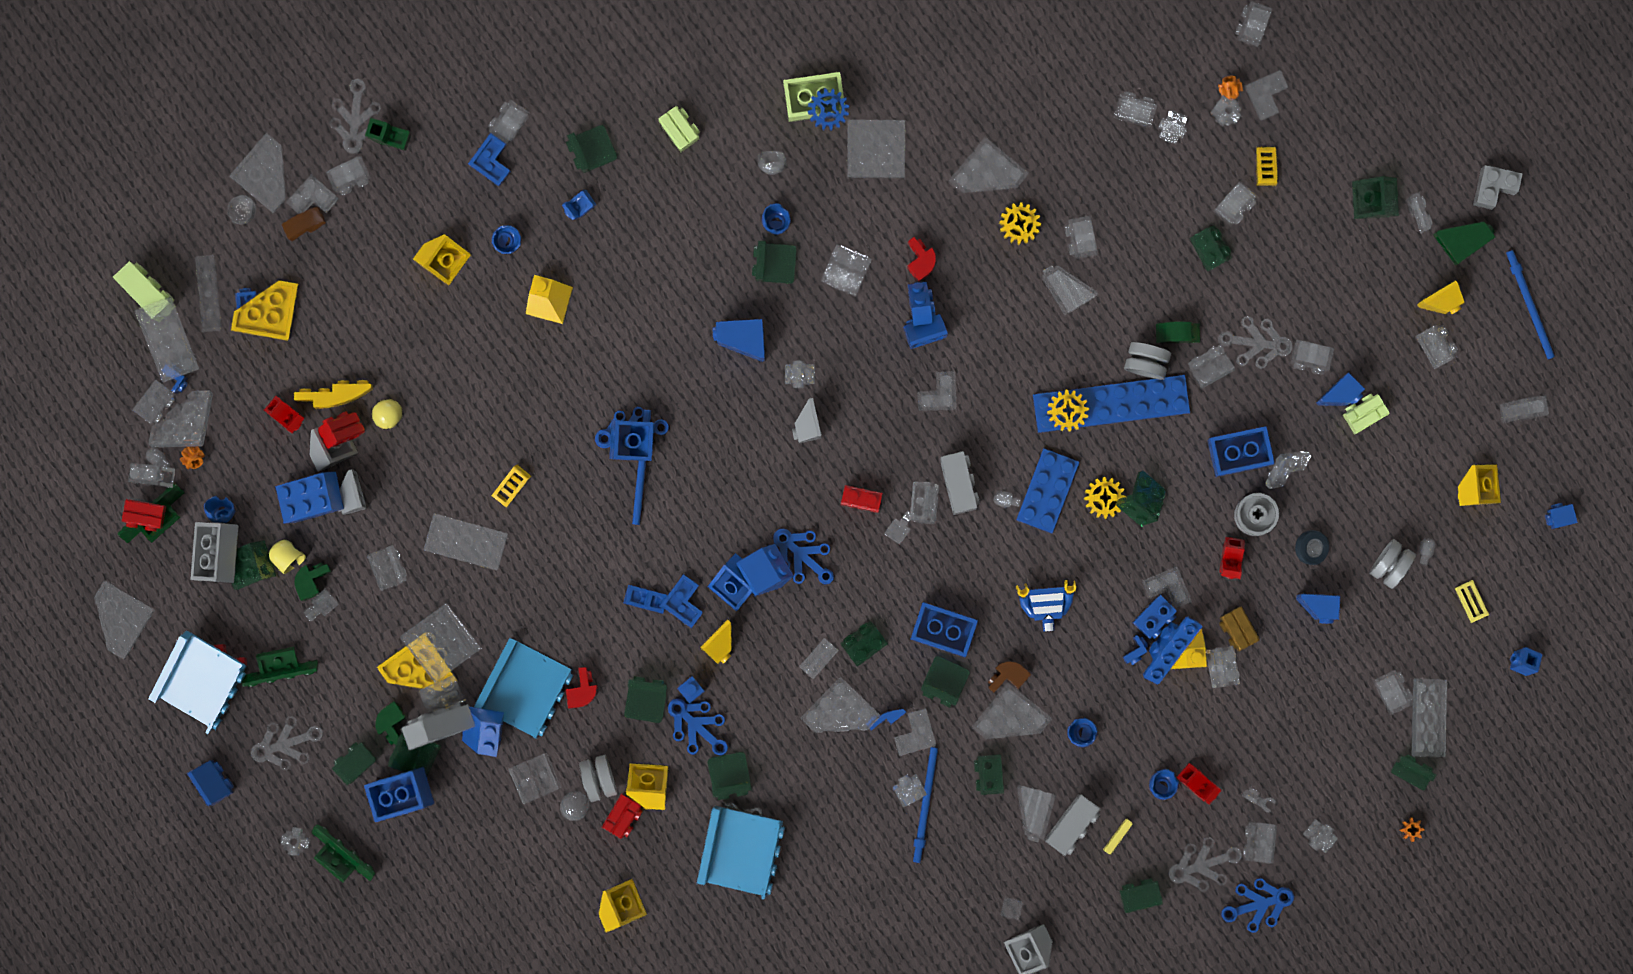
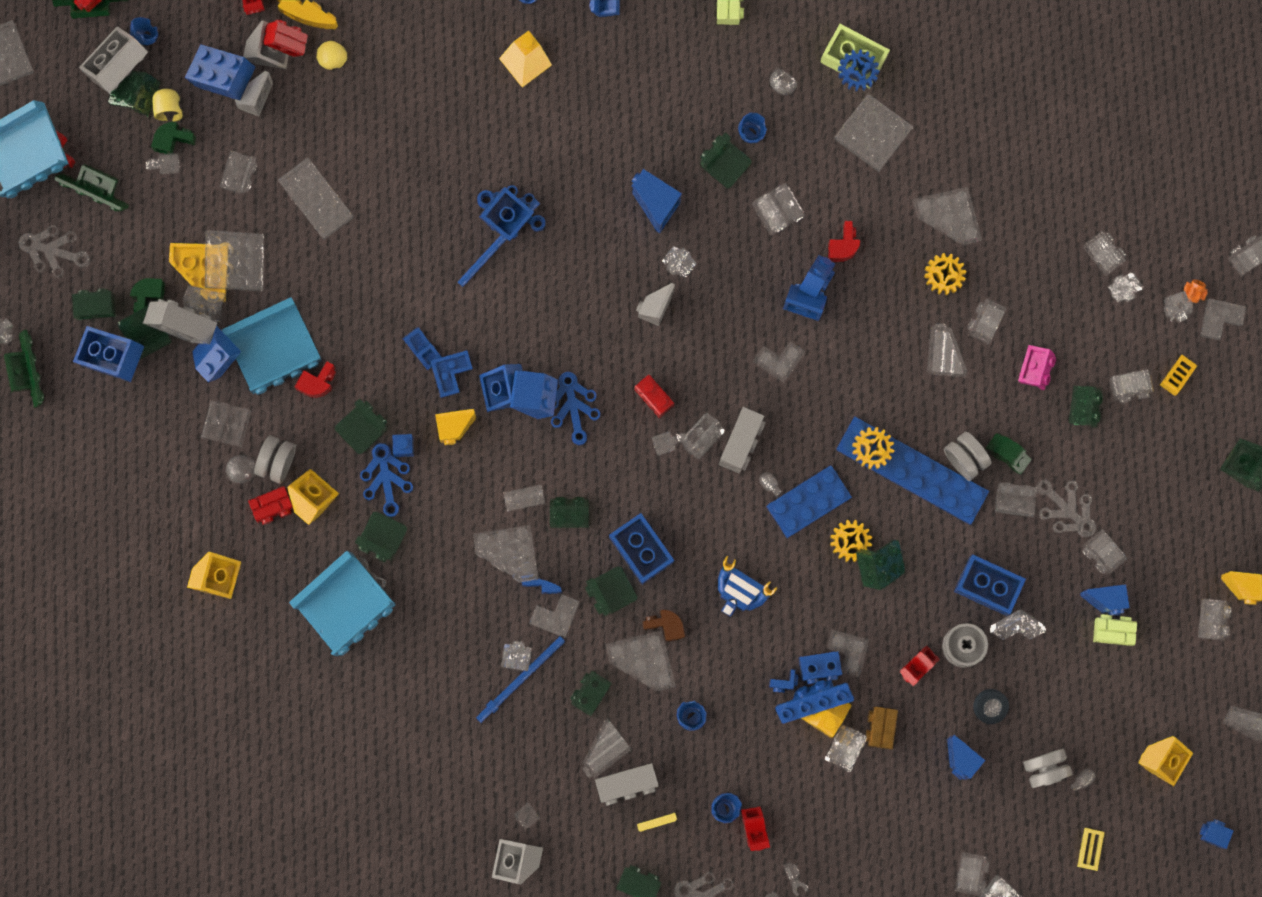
camera: 30 degrees right, 5 degrees down
(522, 473) = (401, 181): yellow slope -> none
(1149, 245) = (1037, 367): none -> dark pink bracket

